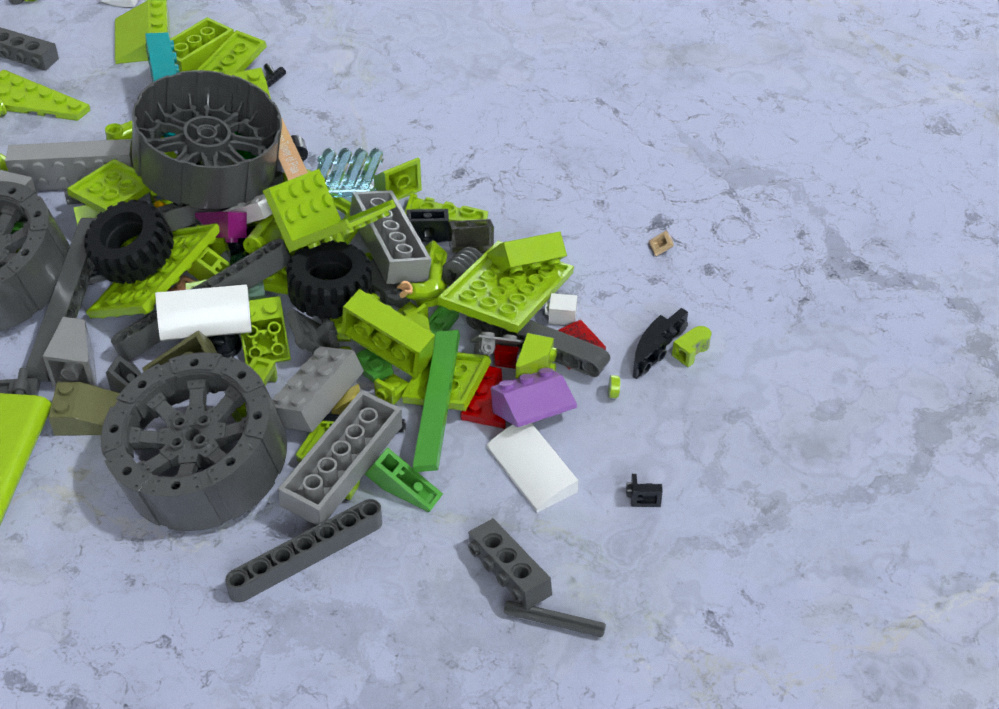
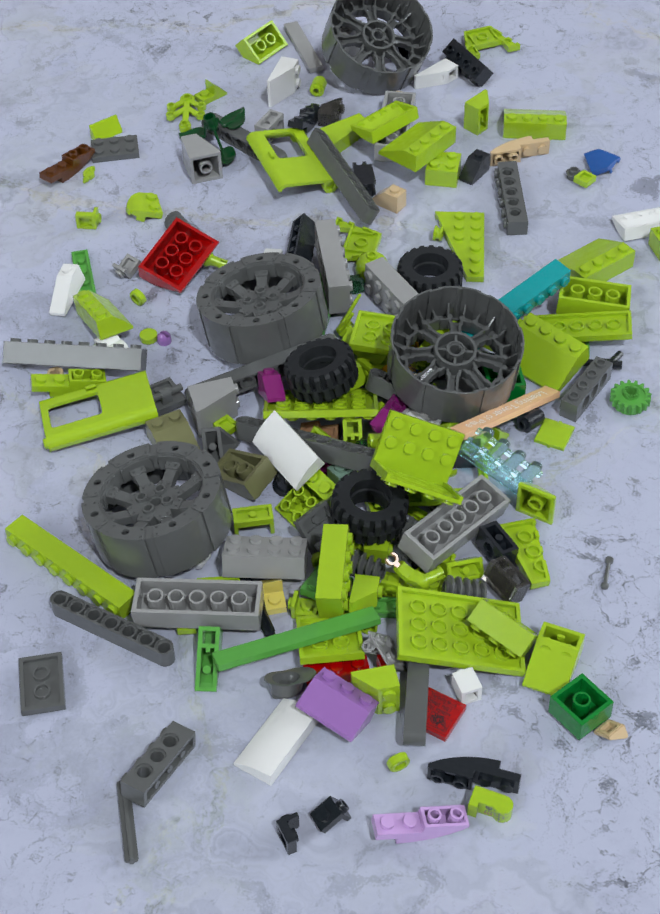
camera: 65 degrees right, 0 degrees up
(54, 123) = (432, 261): none -> black tyre
(61, 217) = (345, 322): none -> lime plant
(98, 296) = (270, 385): none -> magenta slope
(103, 360) = (226, 423): none -> lime plate
(188, 560) = (70, 566): none -> lime brick
(293, 100) = (585, 389): none -> dark grey brick
(322, 140) = (554, 434): none -> lime piece
(326, 81) = (630, 397): none -> bright green gear
(334, 638) = (42, 684): none -> dark grey plate
(477, 426) = (288, 682): none -> dark grey piece
(488, 172) = (608, 560): none -> dark grey hinge
(581, 242) = (553, 658): none -> lime slope
(634, 246) = (580, 706): none -> green brick
(639, 455) = (330, 813): none -> black bracket
(687, 395) = (420, 825): none -> lavender slope

